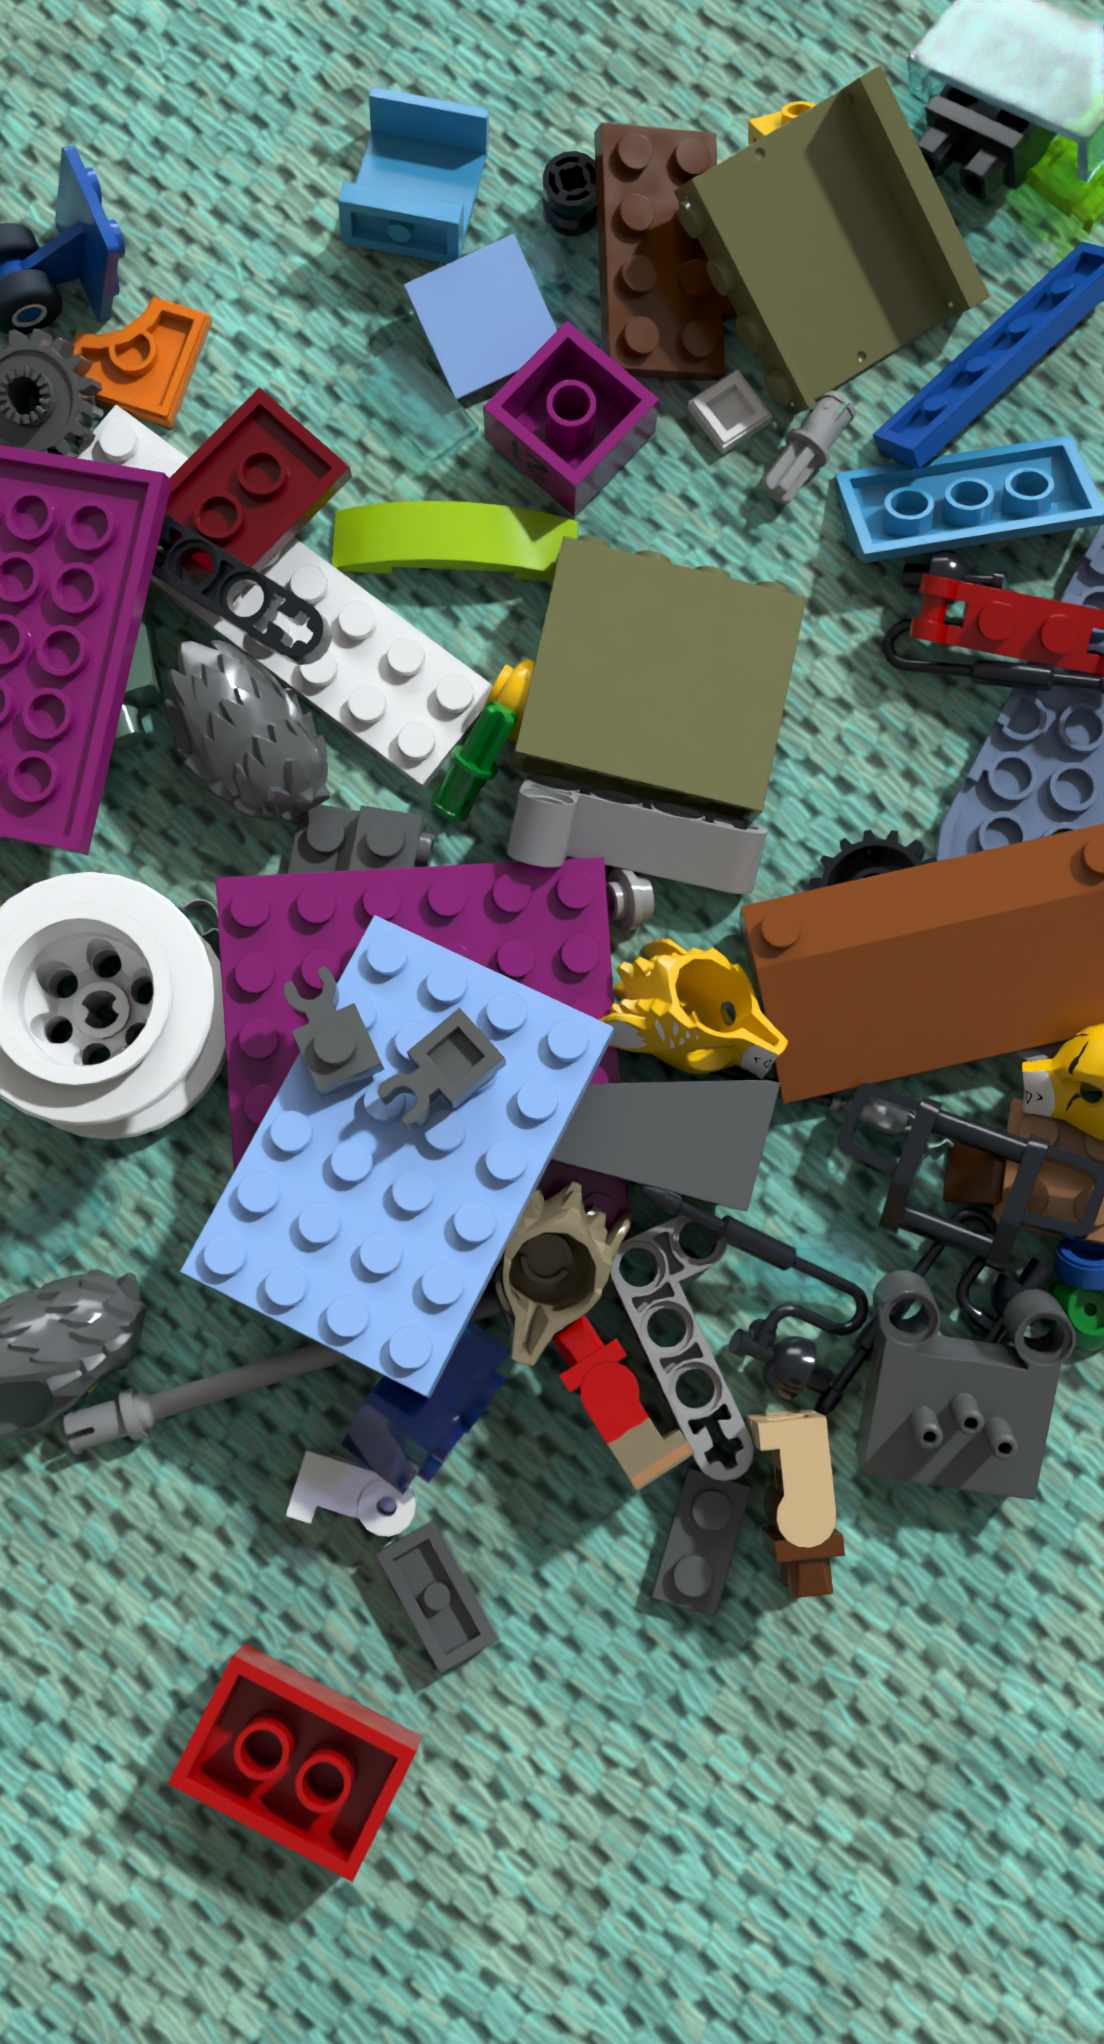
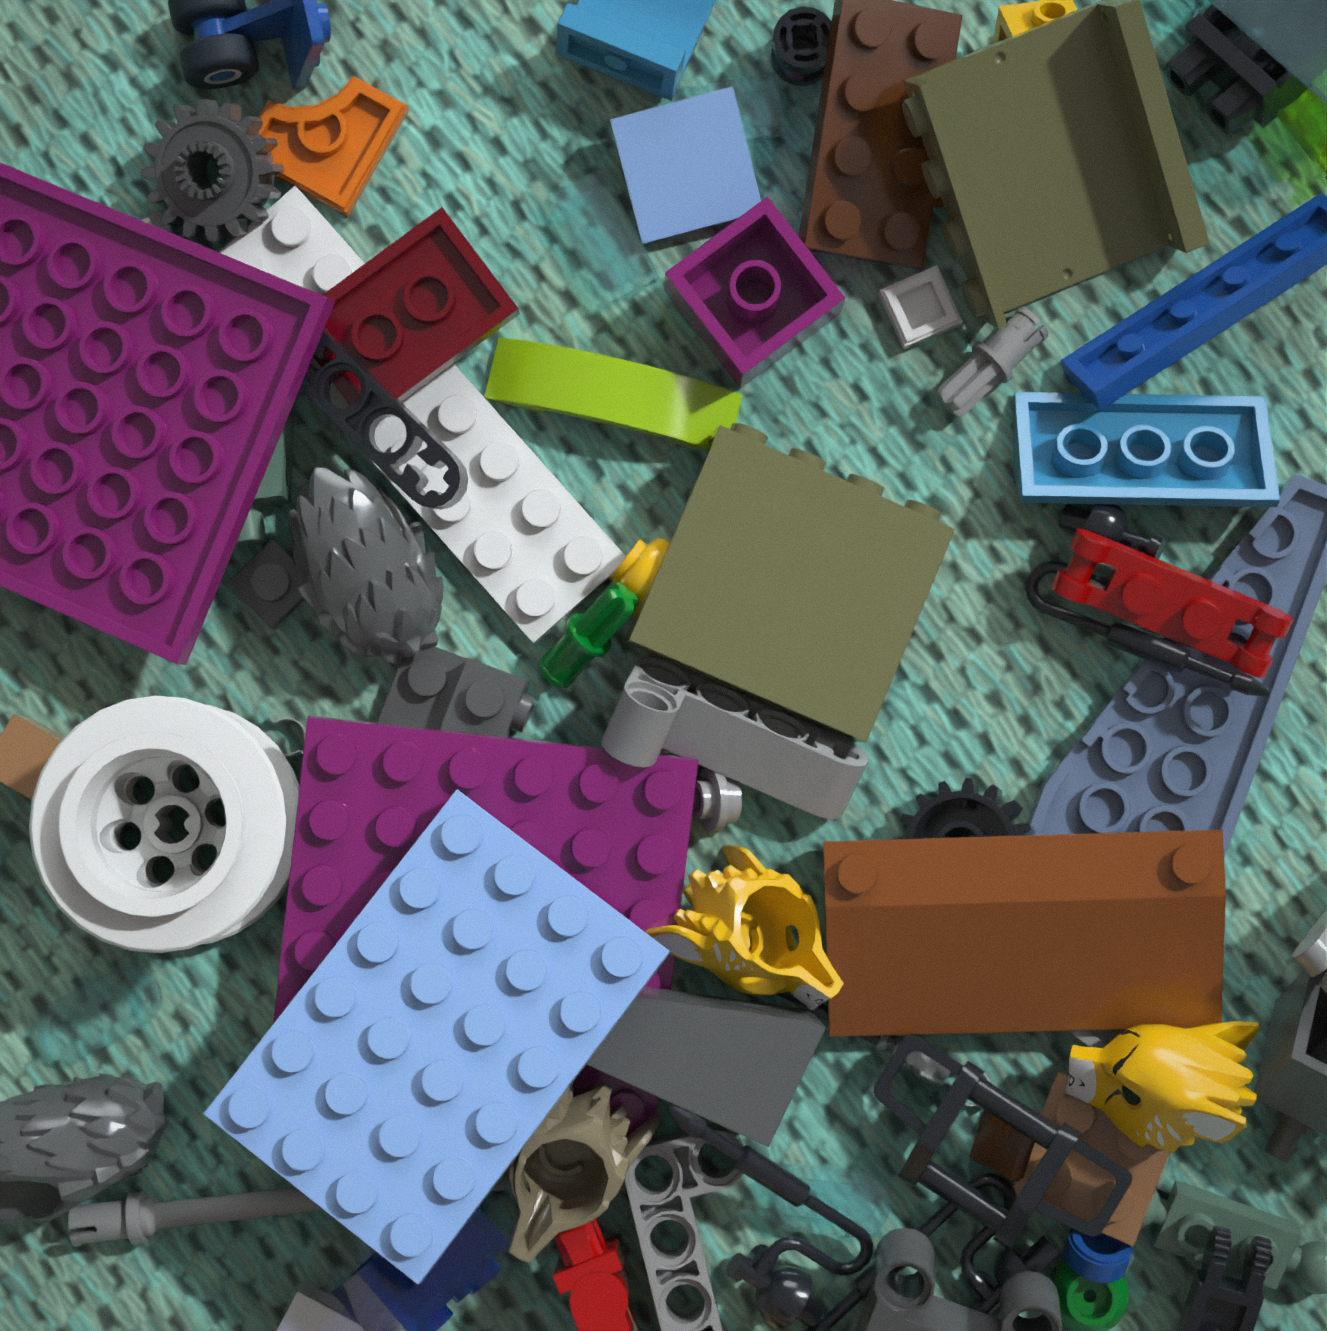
camera: 10 degrees right, 5 degrees up
(158, 778) = (269, 584): none -> dark grey plate
(334, 1041) = (394, 919): dark grey plate -> none
(449, 1063) = (501, 963): dark grey plate -> none

